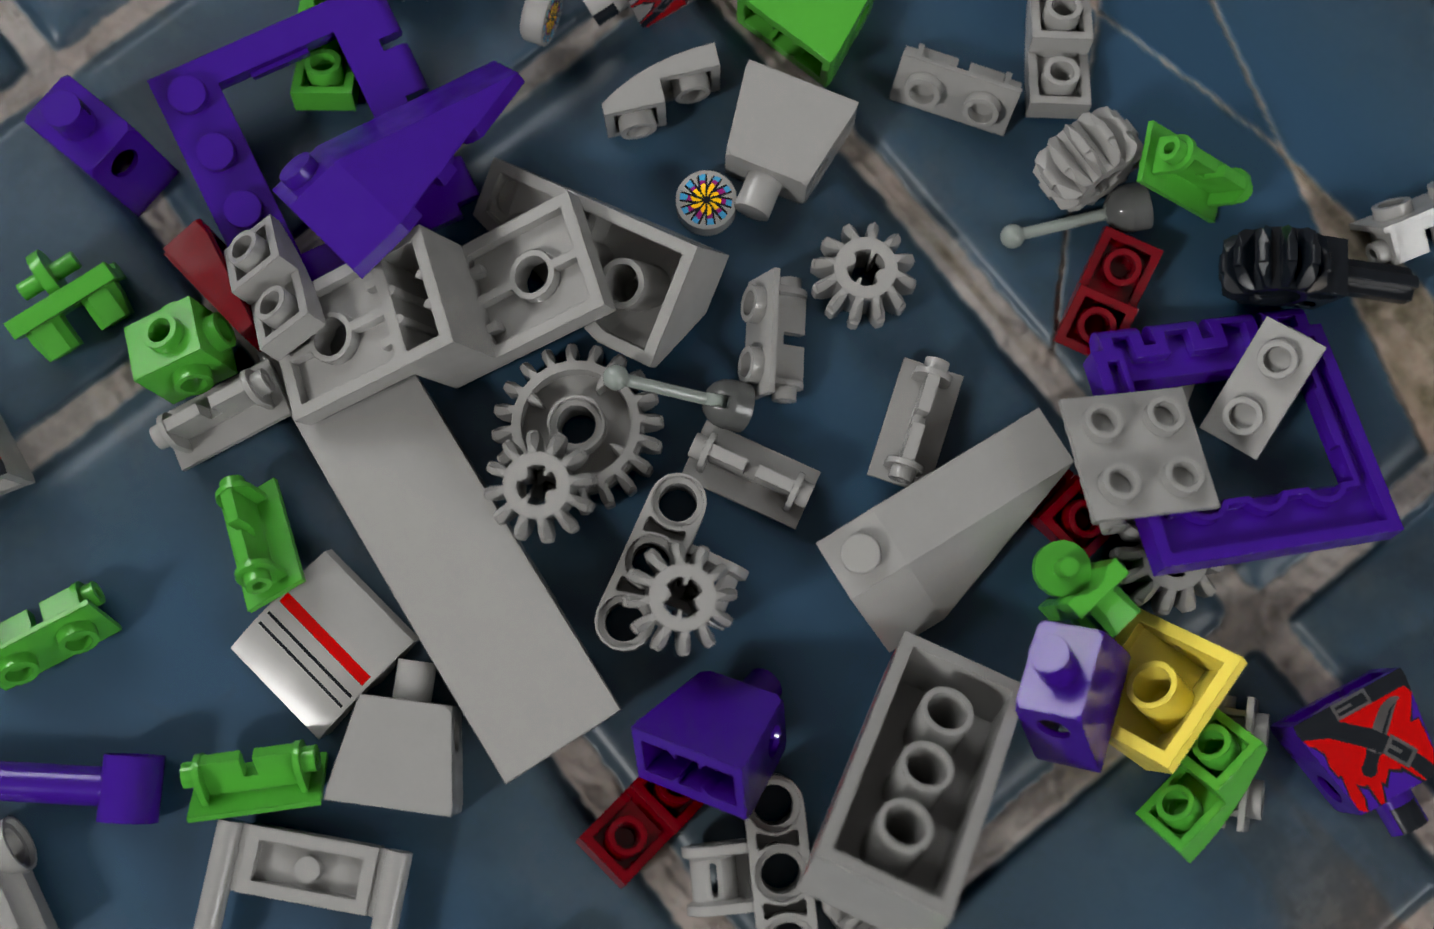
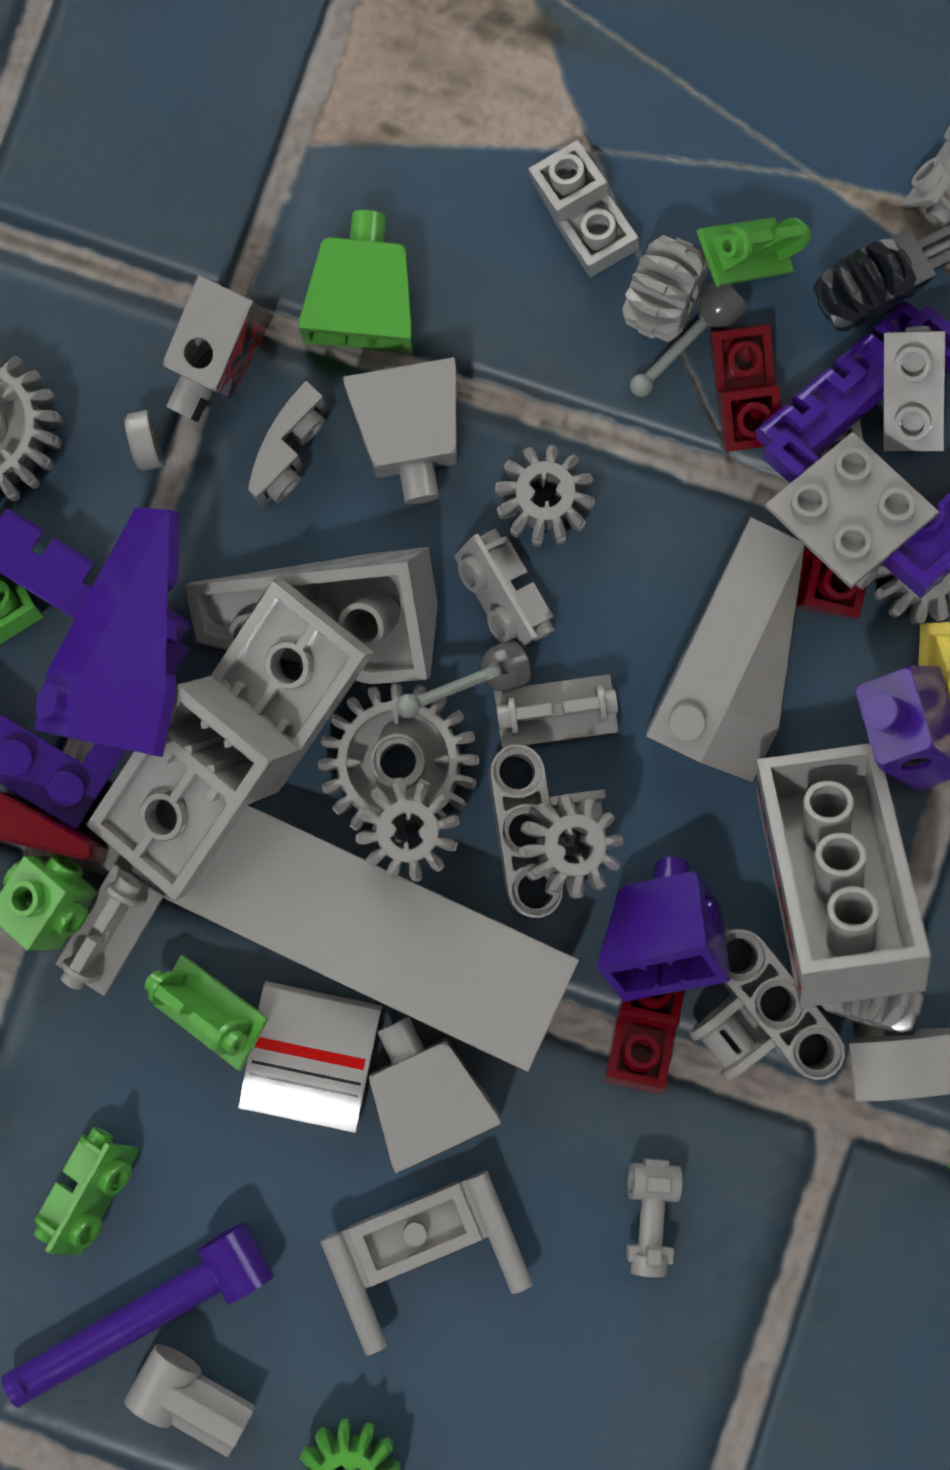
camera: 30 degrees left, 5 degrees up
(274, 281) = (87, 803): light grey slope -> none
(274, 781) = (342, 1188): bright green hinge -> none
(706, 203) = (379, 513): tile -> none
(915, 421) = (659, 587): light grey hinge -> none
(972, 97) = (546, 287): light grey hinge -> none
(1085, 590) = (871, 640): bright green hips -> none

